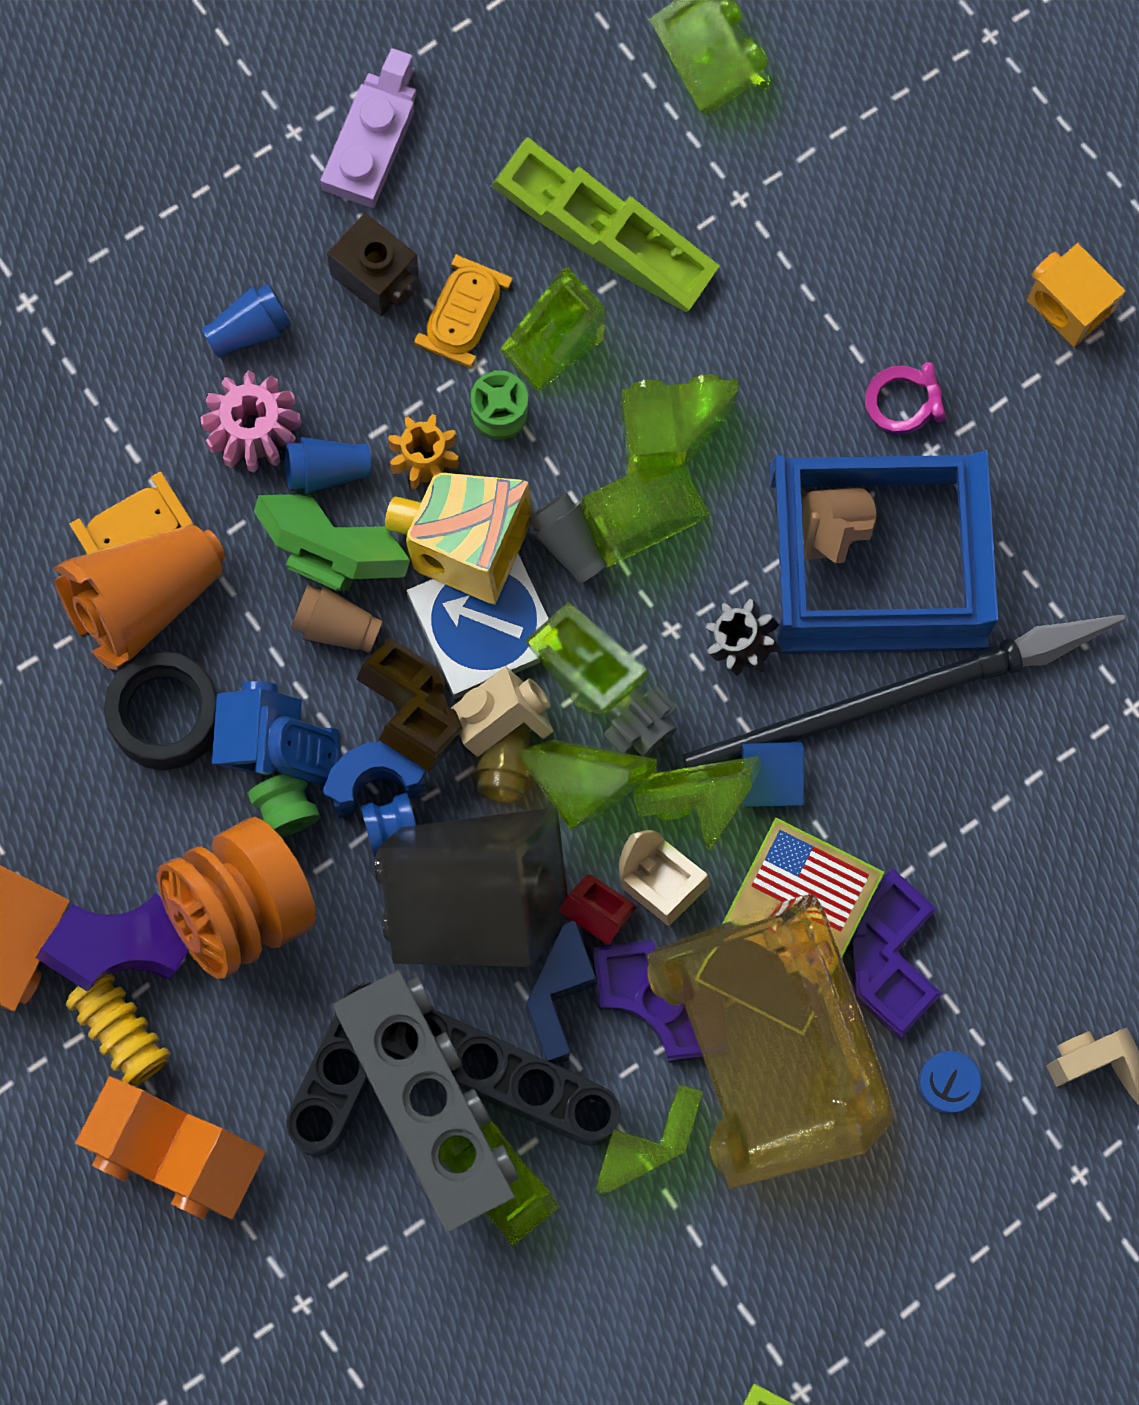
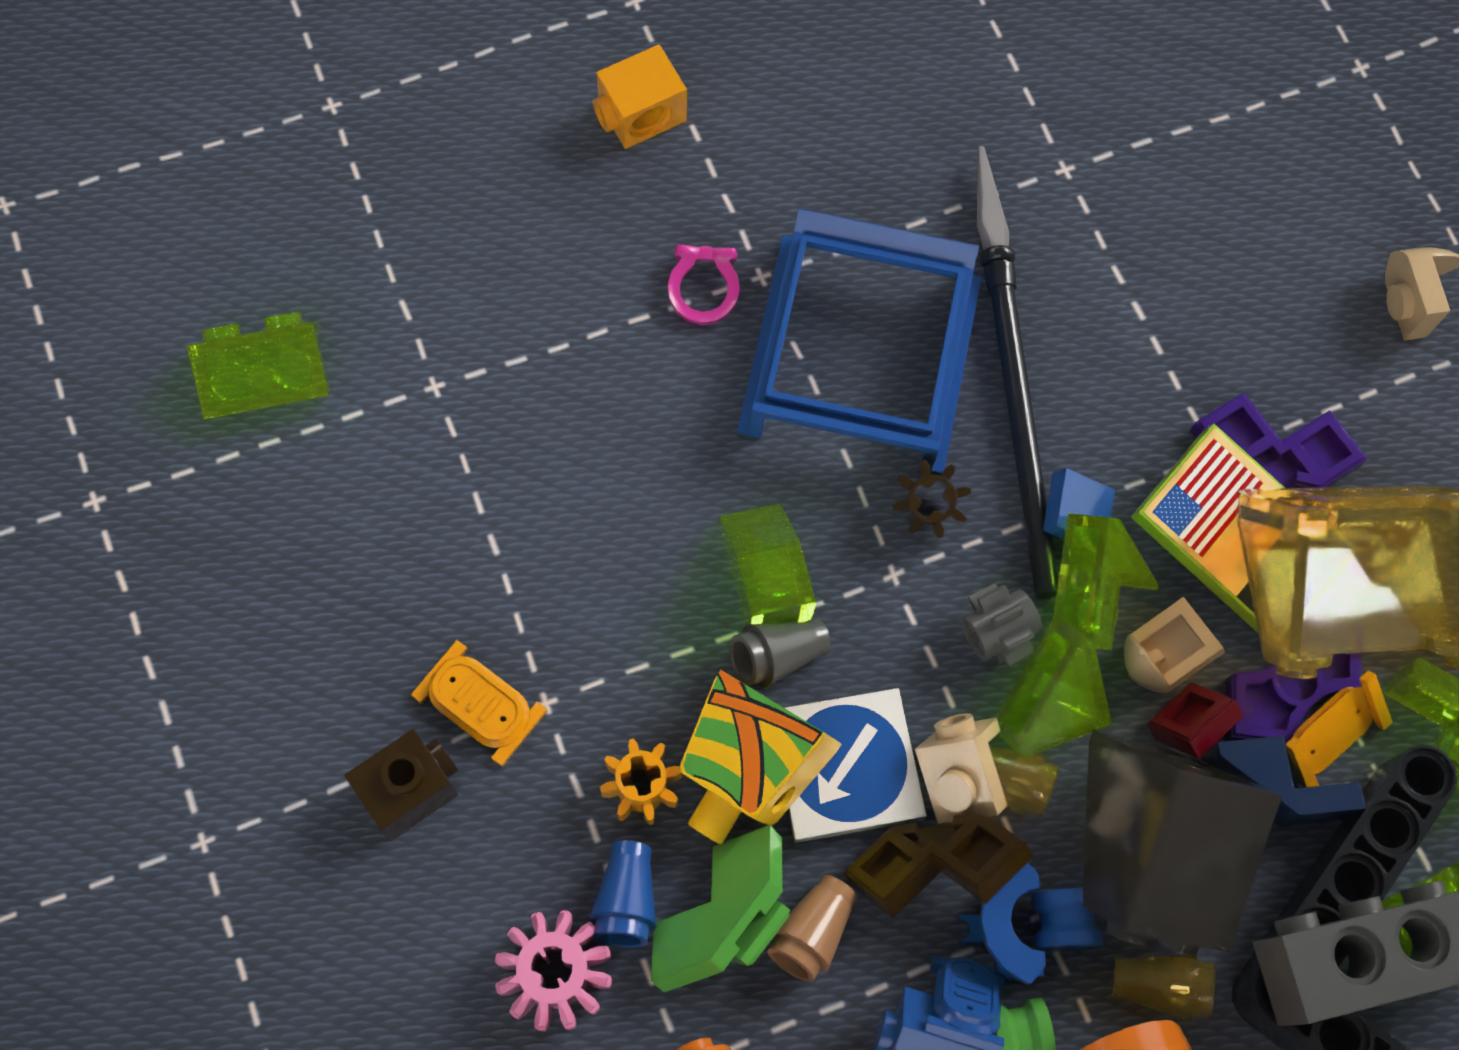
camera: 75 degrees left, 5 degrees down
(247, 321) = (427, 947): blue cone -> none
(357, 924) = (1167, 983): none -> clear yellow cone
(372, 133) = (237, 751): lavender hinge -> none
(495, 393) = (600, 675): bright green wheel -> none
(556, 330) = (539, 604): clear neon green slope -> none
(585, 660) = (932, 660): clear neon green slope -> none
(605, 227) = (426, 528): lime slope -> none
(621, 1039) = (1337, 728): none -> light orange piece
(674, 421) = (677, 512): clear neon green slope -> none
(835, 521) = (829, 371): medium nougat piece -> none
(949, 1082) = (1416, 428): blue tile -> none

